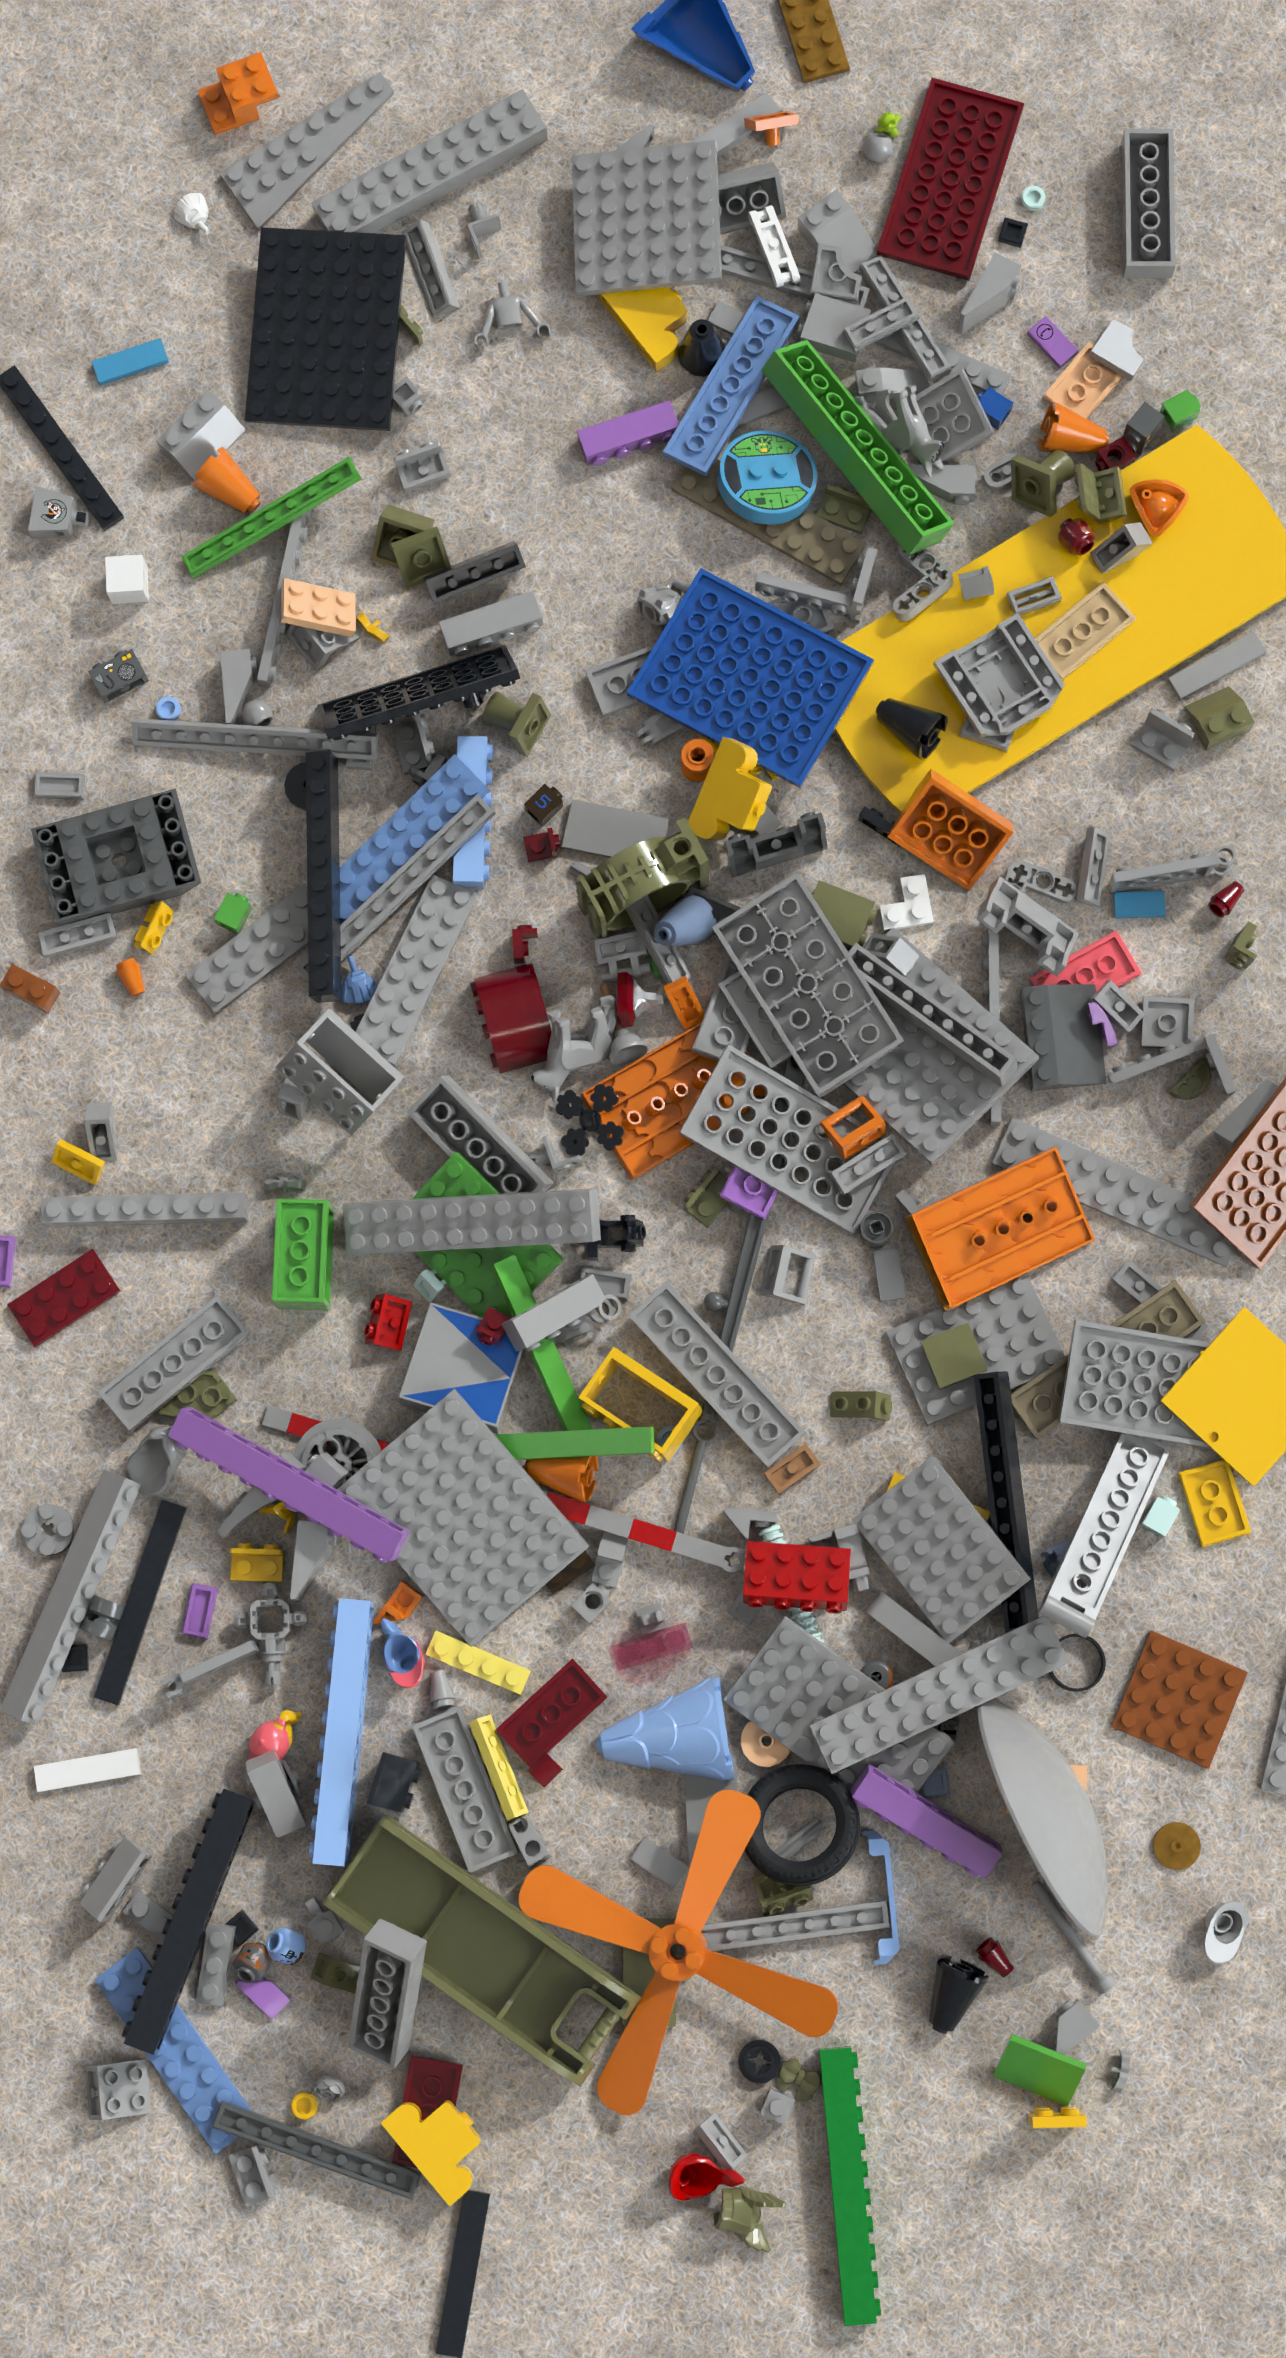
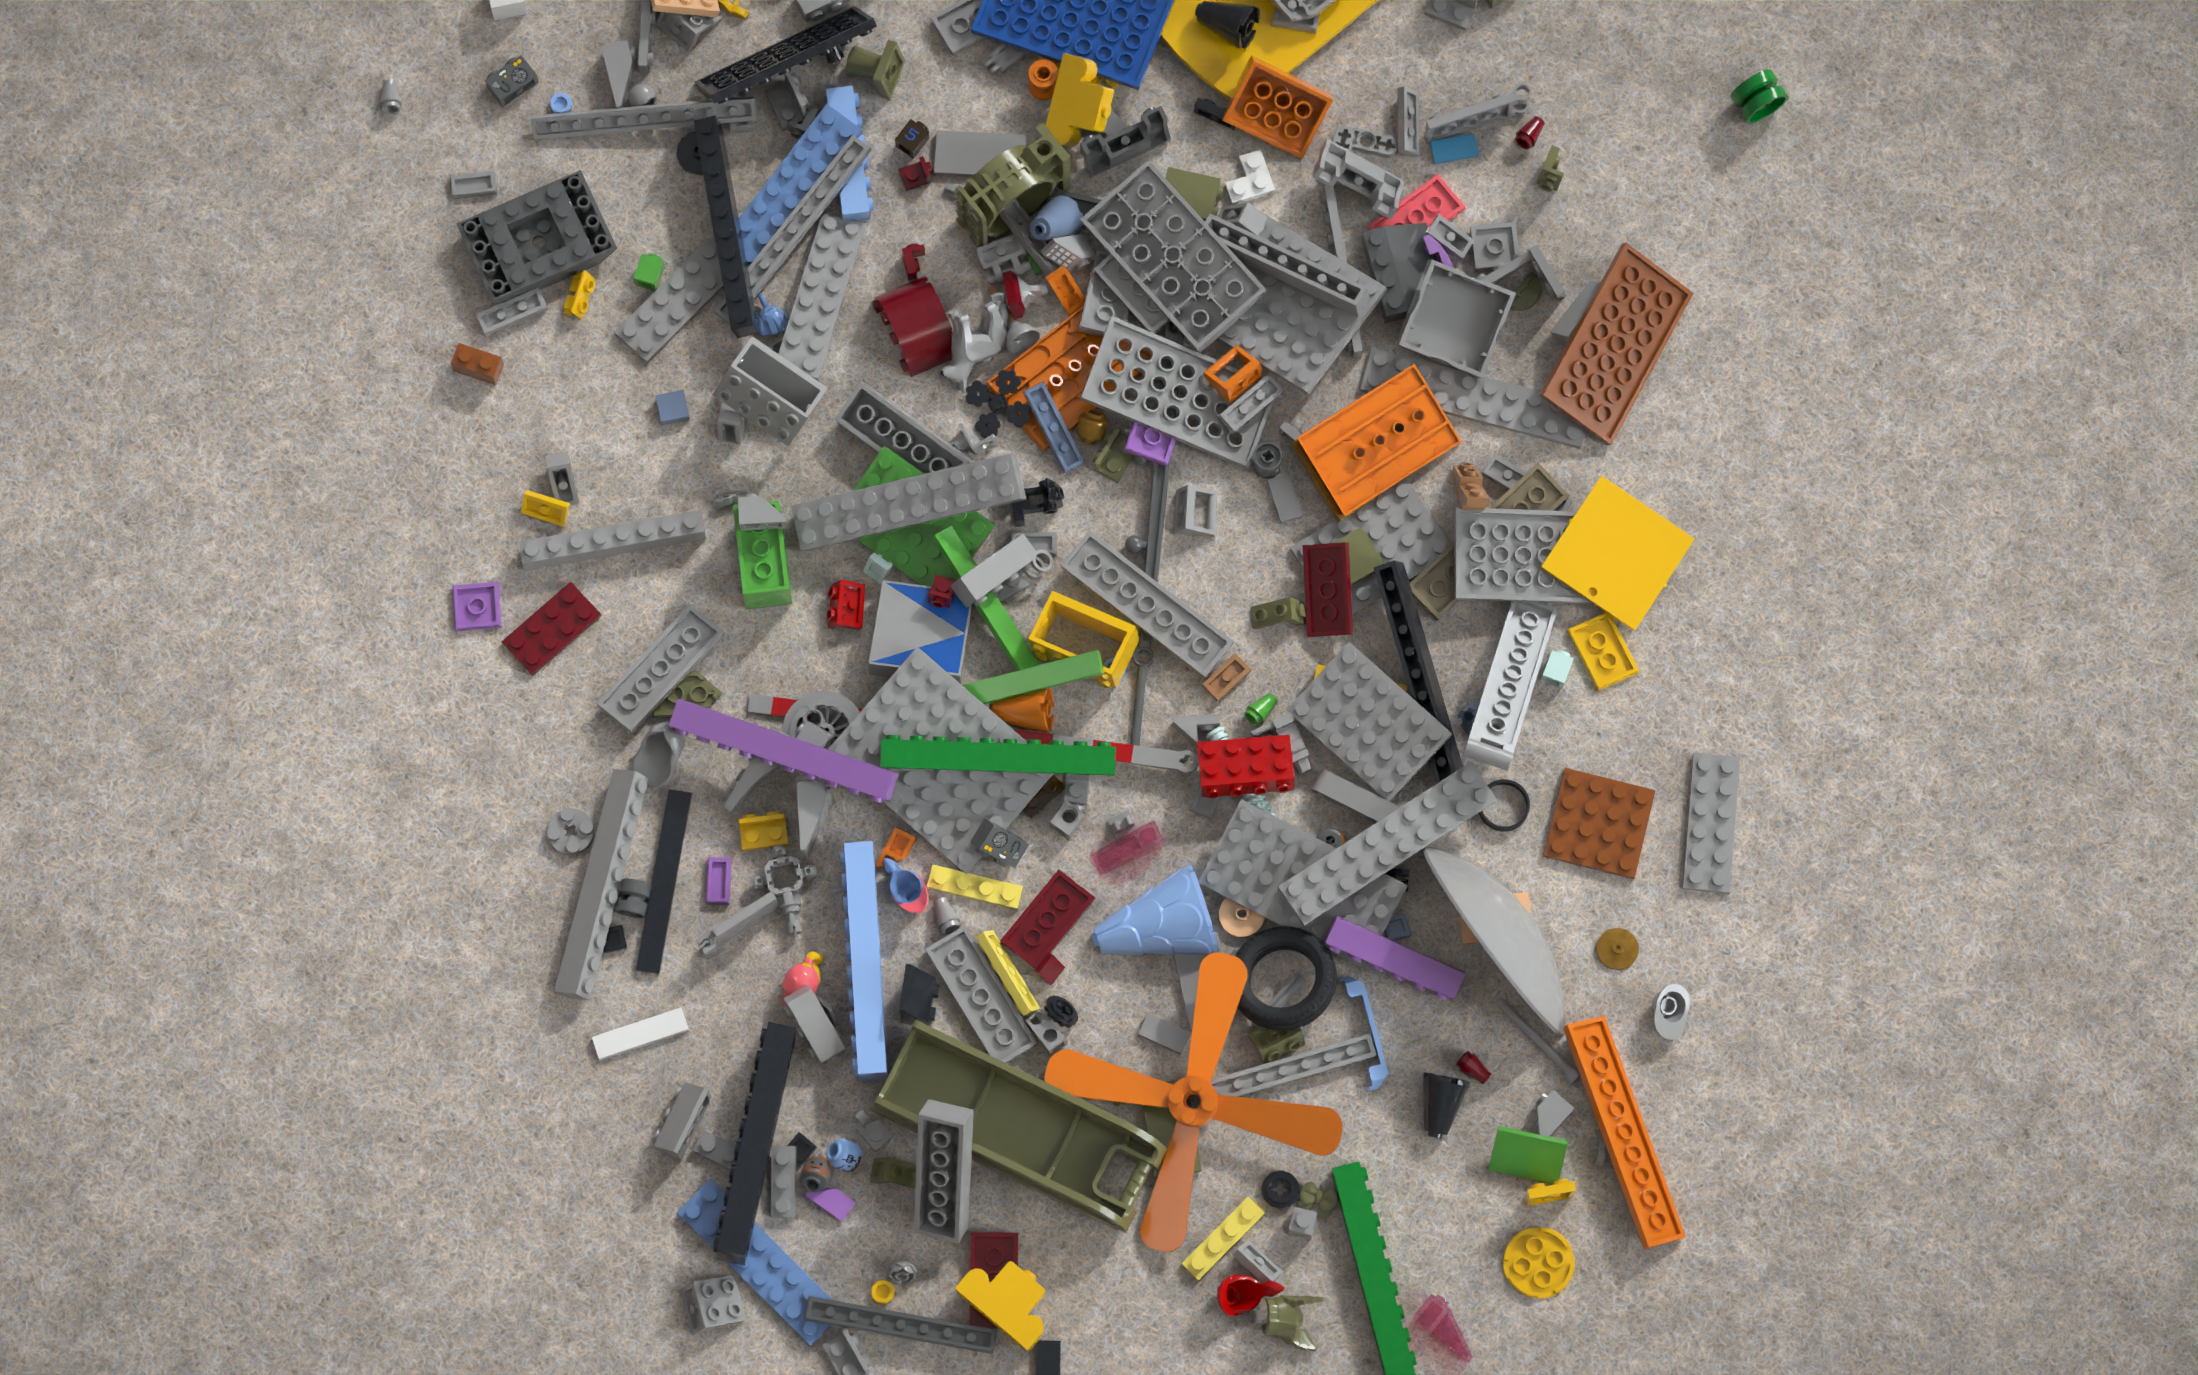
camera: 15 degrees left, 5 degrees down
(131, 977) = (565, 339): orange cone -> none
(234, 1069) = (672, 407): none -> sand blue piece
(282, 1512) = (779, 779): yellow plant -> none
(300, 1213) = (758, 514): none -> light grey slope
(511, 1621) = (999, 843): none -> dark grey brick
(523, 1527) = (998, 757): none -> green brick
(558, 1821) = (1067, 1017): none -> black gear
(646, 1156) = (1053, 427): none -> sand blue tile
(687, 2106) = (1223, 1238): none -> light yellow plate
(688, 1161) = (1092, 426): none -> pearl gold head
(695, 961) = (1070, 251): none -> light grey slope
(824, 1510) = (1260, 709): none -> bright green cone
(911, 2242) = (1440, 1322): none -> clear pink slope
(919, 1389) = (1327, 589): none -> dark red plate
(1032, 2191) = (1538, 1262): none -> yellow tile
(1095, 1297) = (1469, 487): none -> medium nougat slope
(1109, 1102) = (1455, 318): none -> light grey tile
(1151, 2061) = (1624, 1132): none -> orange plate

